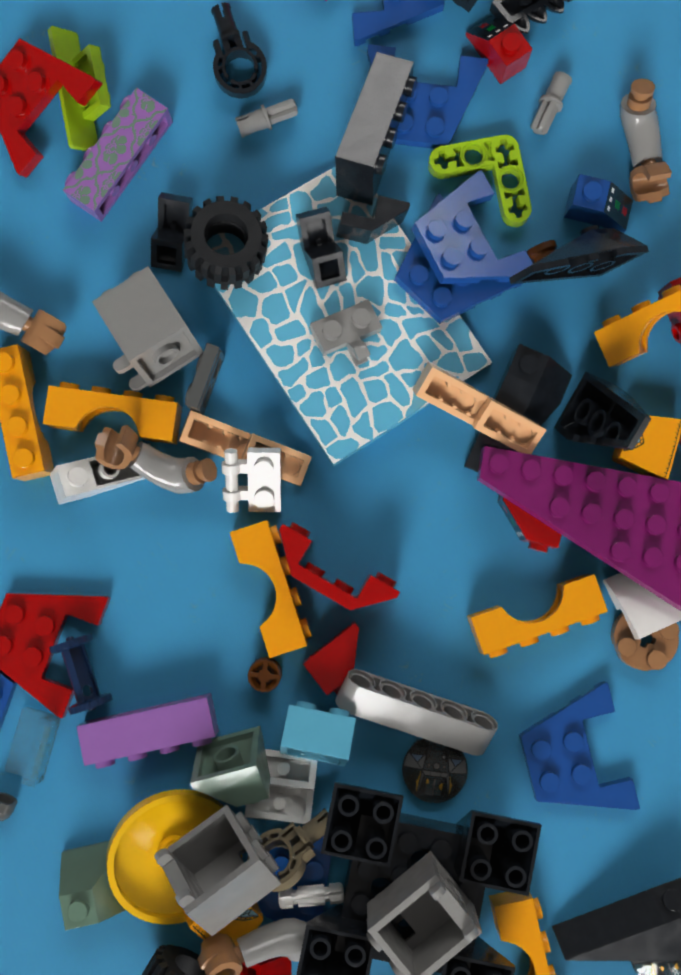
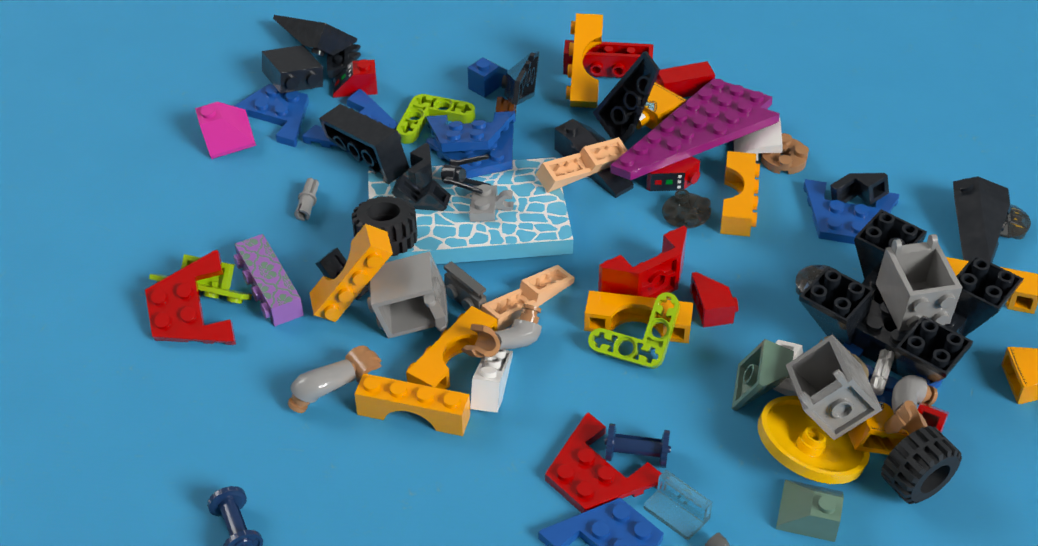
camera: 60 degrees left, 40 degrees down
(128, 253) = (367, 255): none -> light orange arch
(148, 729) = (704, 426): medium lavender brick -> none
(227, 618) = (649, 341): none -> lime beam
(229, 38) = (247, 193): black pin -> none
(264, 479) = (559, 288): white plate -> none
(264, 679) = (700, 344): reddish brown wheel -> none
(318, 733) = (762, 315): medium azure brick -> none
(377, 270) = (456, 175): none -> black plant
(416, 712) = (772, 266): light grey beam -> none
(477, 563) = (686, 209): none -> clear smoke dish
(551, 103) = (409, 73): light grey axle -> none
(621, 771) = (864, 185): none -> black slope
(643, 137) = (452, 42): piece -> none

